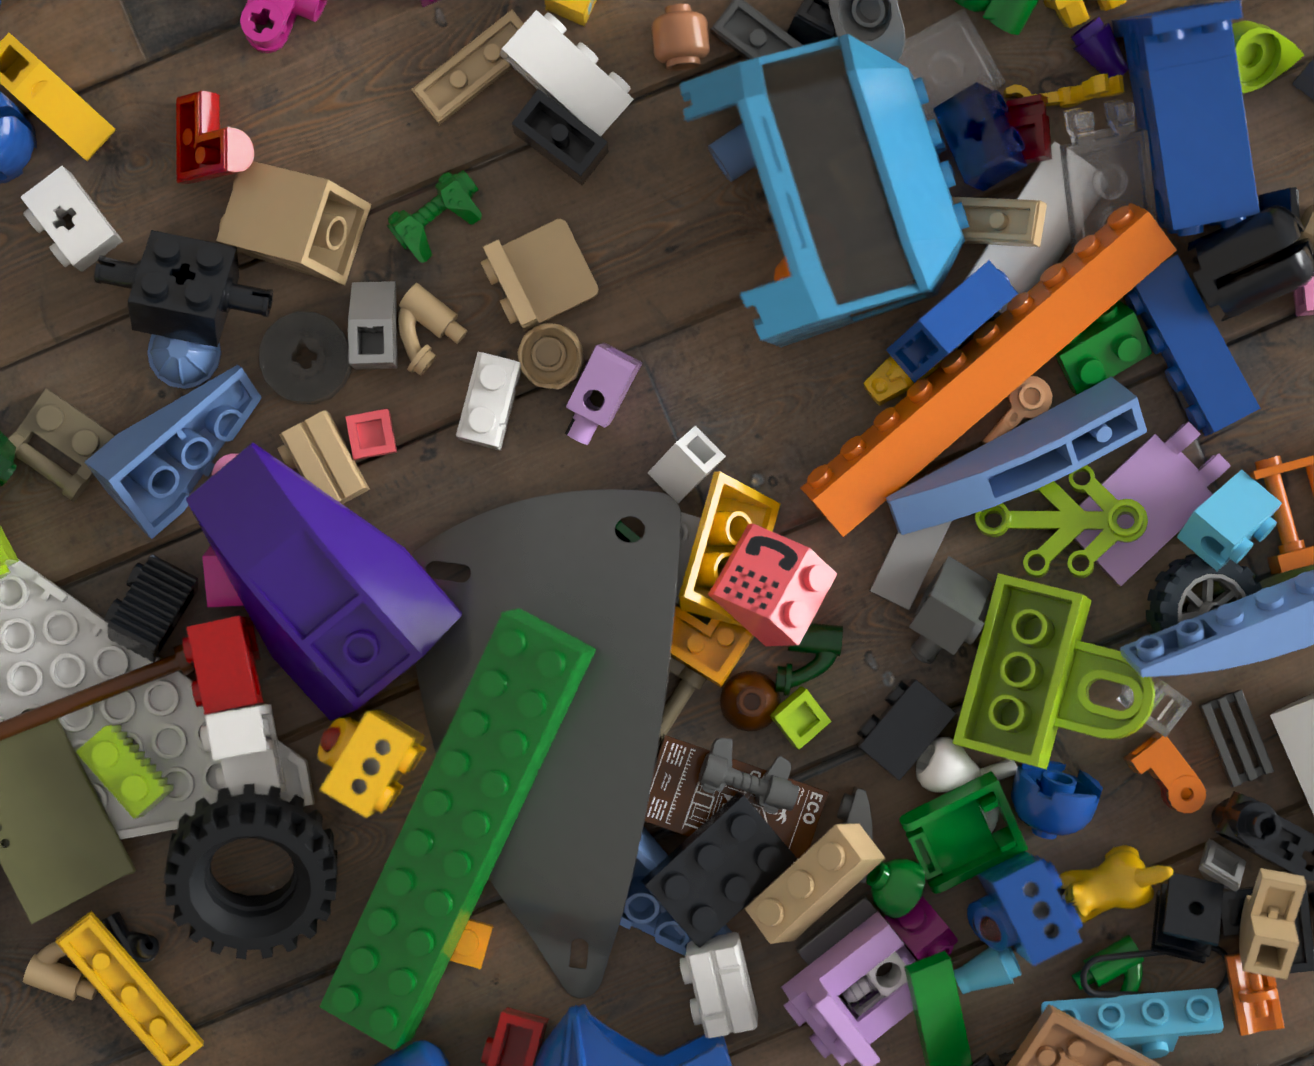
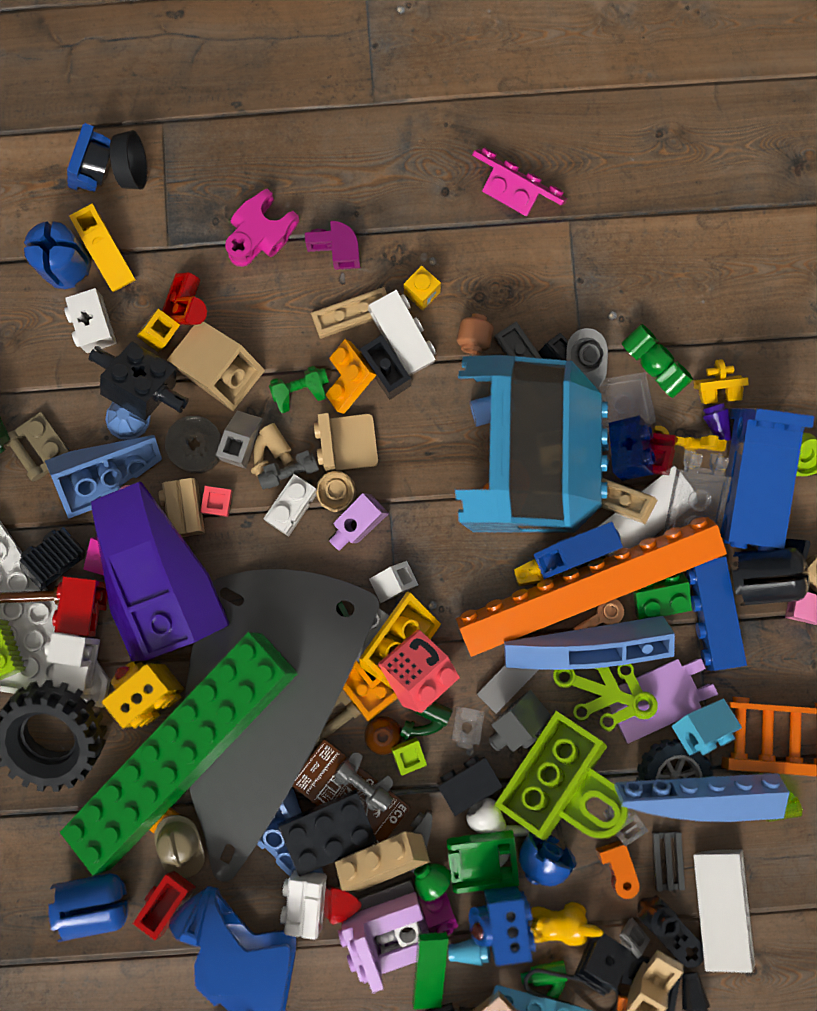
camera: 25 degrees right, 5 degrees down
(184, 198) = (158, 330): none -> yellow brick
(445, 363) = (273, 474): none -> dark grey piece
(503, 967) = (179, 845): none -> dark tan piece
(517, 169) = (354, 377): none -> light orange plate
(772, 968) = (339, 904): none -> red tile
(877, 626) = (475, 718): none -> clear brick

